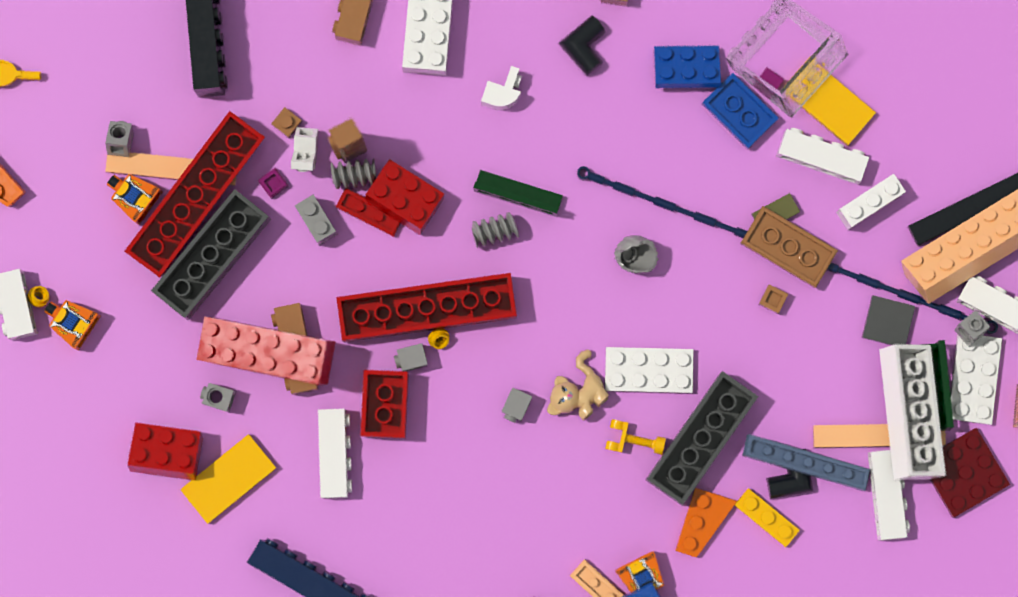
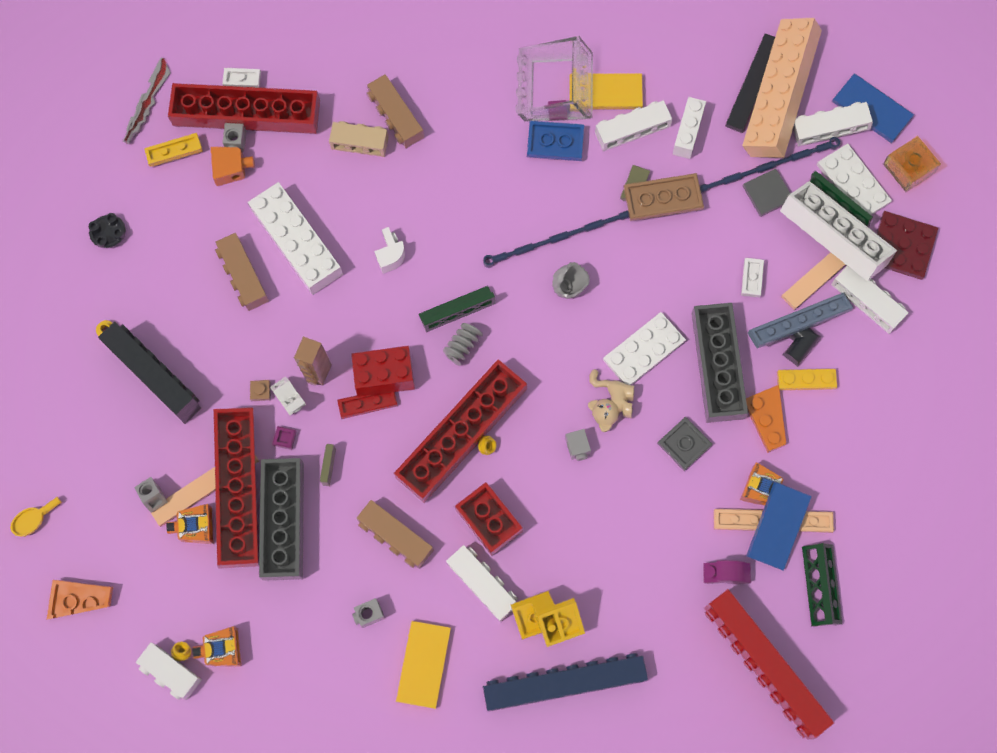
camera: 35 degrees left, 10 degrees down
(165, 451) = (362, 682): red brick -> none
(266, 350) = (375, 549): brick -> none
(289, 239) = (327, 465): none -> olive tile
(316, 220) = (341, 437): light grey brick -> none
(353, 173) = (335, 384): light grey piece -> none
(362, 538) = (553, 621): none -> yellow bracket
(411, 358) = (479, 473): light grey brick -> none
(578, 45) = (414, 185): black brick -> none
(610, 482) = (684, 443): none -> dark grey tile
(656, 444) = (694, 392): yellow bar -> none
(687, 67) = (497, 141): blue plate -> none
(773, 299) = (683, 237): medium nougat plate -> none
(801, 387) = (752, 277): none -> white plate
(972, 328) = (825, 149): light grey brick -> none

